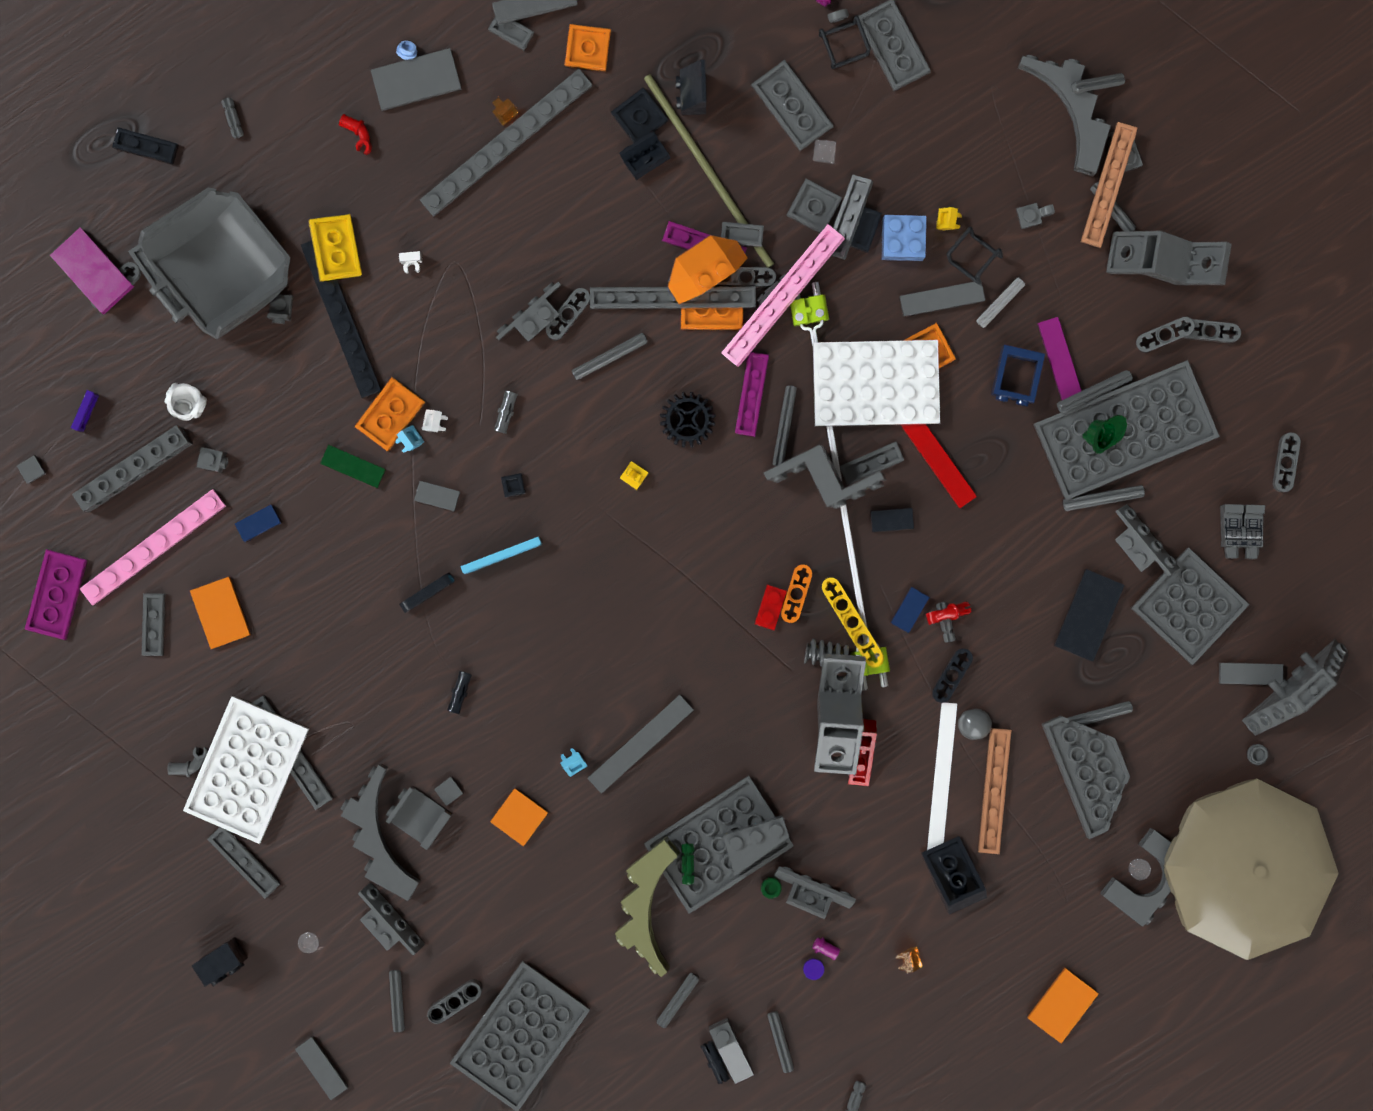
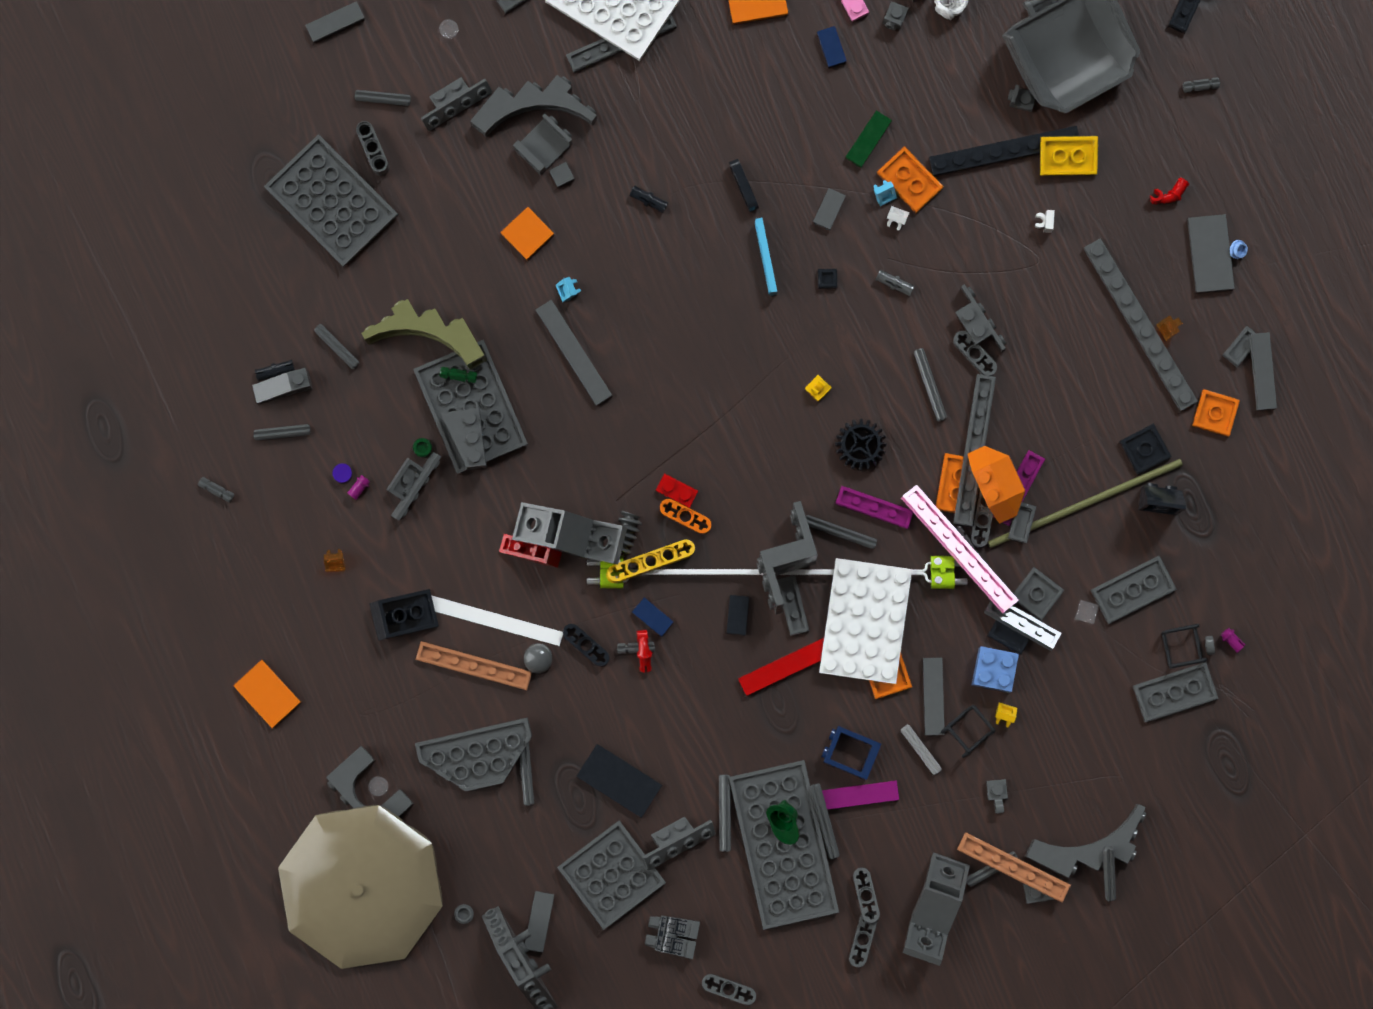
camera: 95 degrees right, 5 degrees down
(644, 155) = (1108, 446): black bracket -> none

